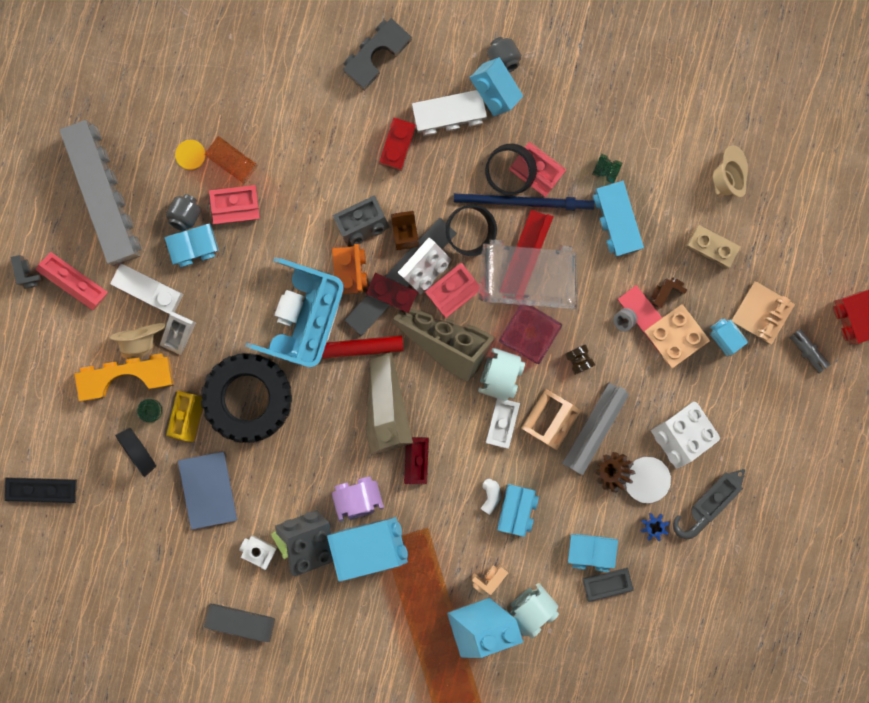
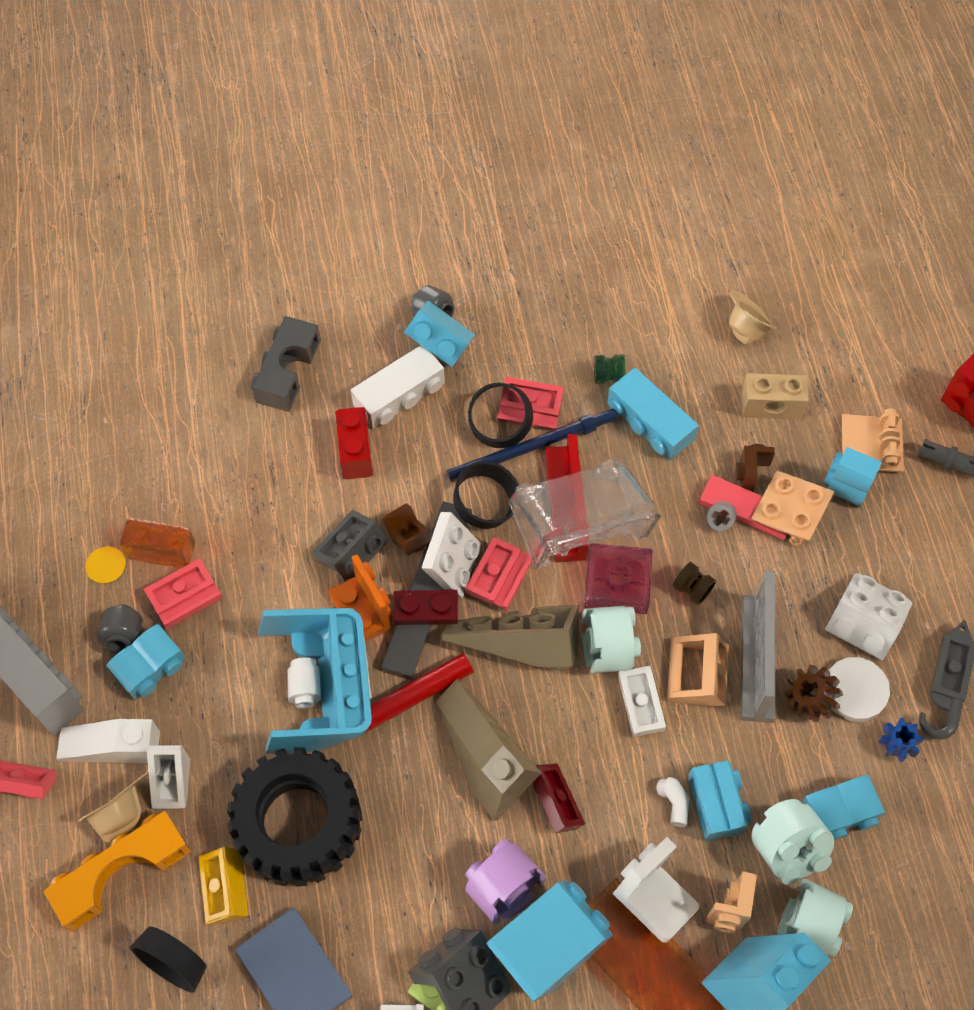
camera: 20 degrees left, 25 degrees down
(150, 410) = (174, 902): clear green wheel -> none
(446, 550) = (654, 894): none -> white bracket
(546, 560) = (793, 841): none -> light aqua brick
(607, 584) = (886, 845): dark grey tile -> none

